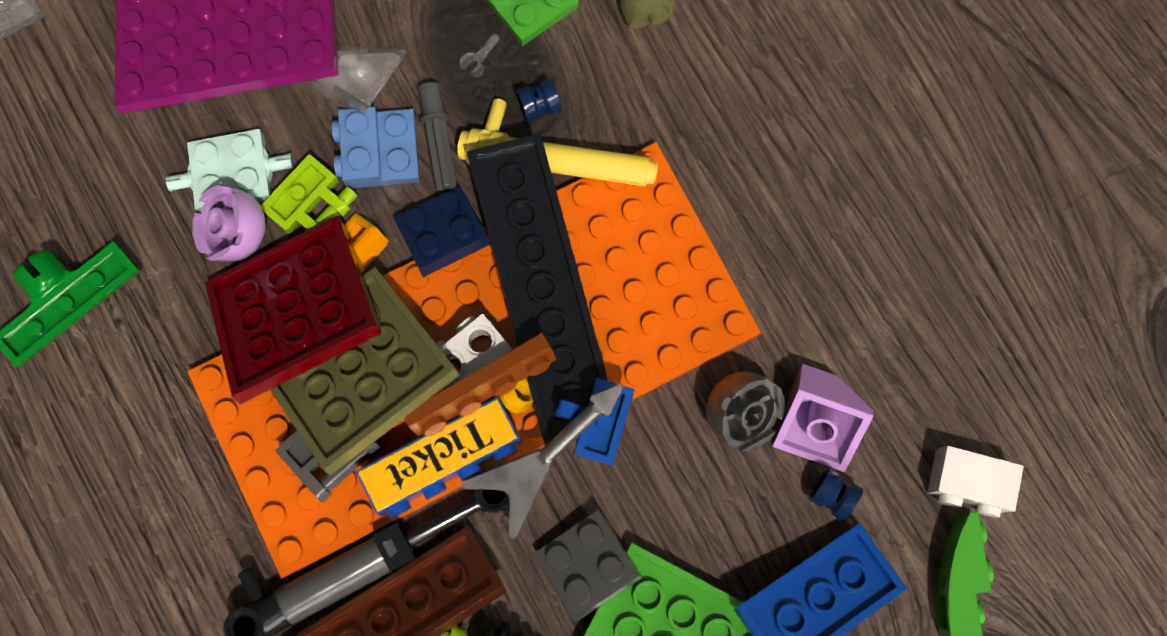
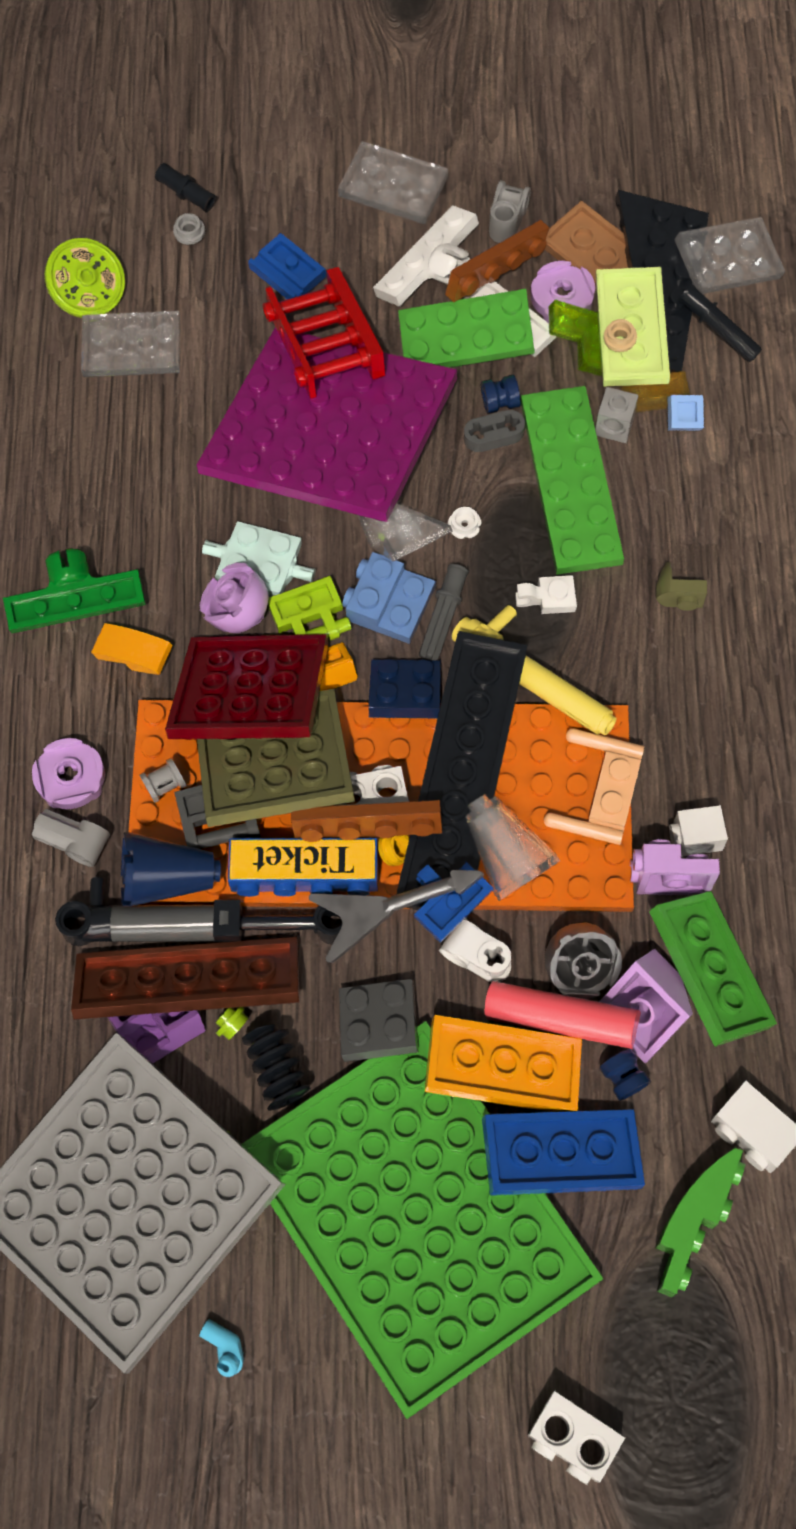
camera: 35 degrees right, 10 degrees down
(151, 322) = (132, 647): none -> light orange slope
(180, 482) = (52, 764): none -> lavender plate
(204, 542) = (78, 840): none -> light grey piece
(256, 443) = (163, 780): none -> light grey bush
(307, 535) = (163, 869): none -> dark blue cone
(407, 29) = (468, 516): none -> white plate
(479, 57) = (513, 565): clear hand -> none
(527, 68) = (552, 594): none -> white plate
(538, 100) = (544, 623): dark blue wheel -> none
(627, 343) = (507, 846): none -> clear cone
(637, 453) = (472, 948): none -> white piece
(688, 234) = (612, 792): none -> light nougat plate
(724, 547) = (503, 1065): none -> light orange plate
(752, 469) = (562, 1014): none -> coral brick
(777, 282) = (661, 870): none -> lavender plate
(782, 230) = (699, 830): none -> white brick
(862, 355) = (712, 968): none -> bright green plate

